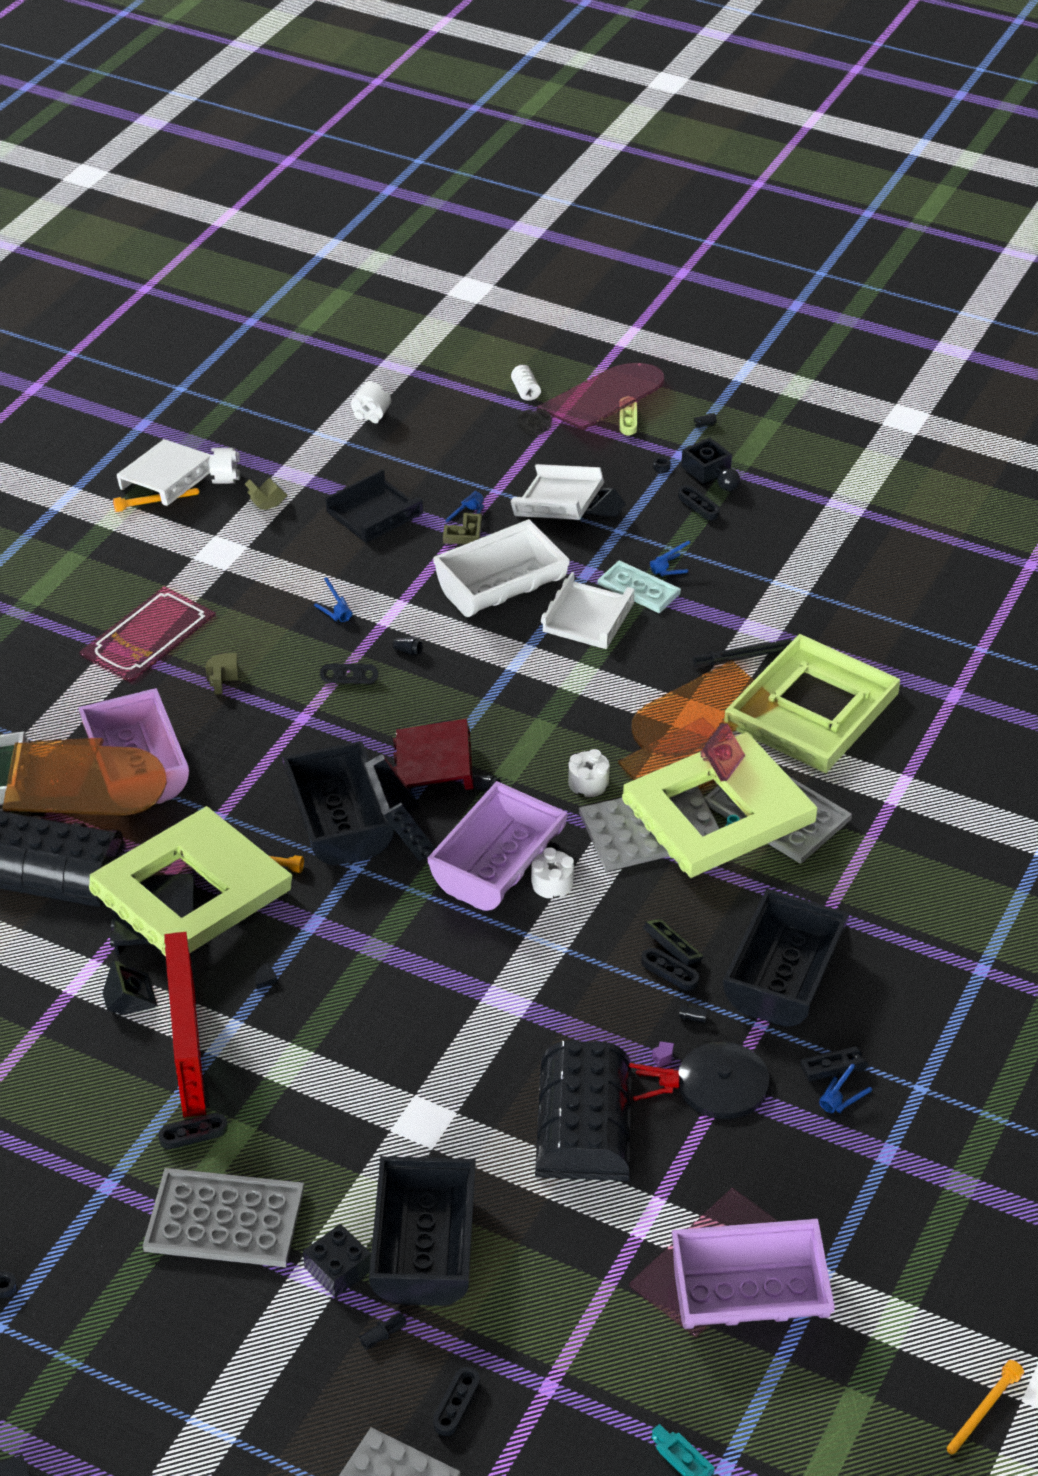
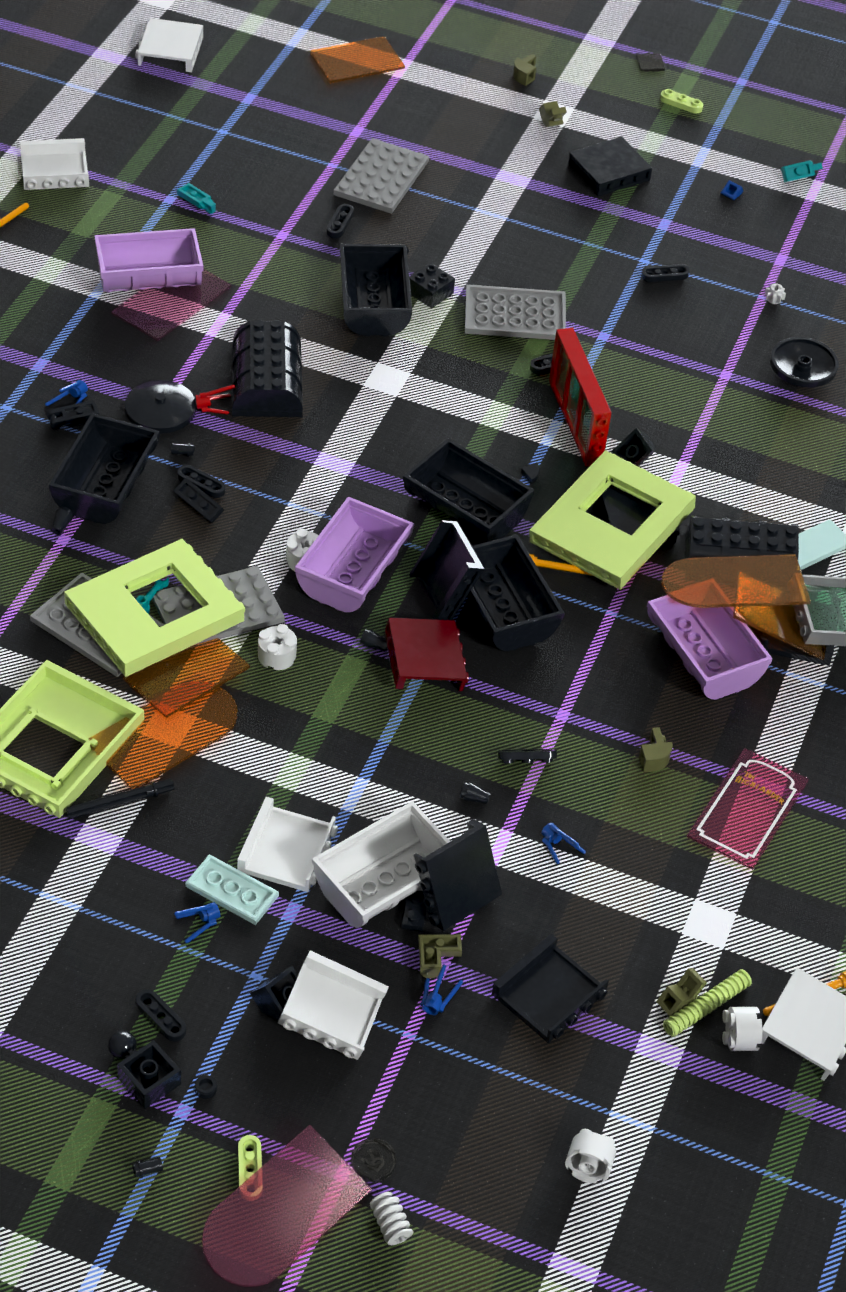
camera: 170 degrees right, 5 degrees up
(238, 495) = (707, 1003): none -> yellowish green piece
(358, 914) = (469, 490): none -> black container
(437, 541) = (459, 877): none -> black panel
(663, 1054) = (207, 420): medium lavender piece -> none
(723, 752) = (151, 617): clear pink tile -> none

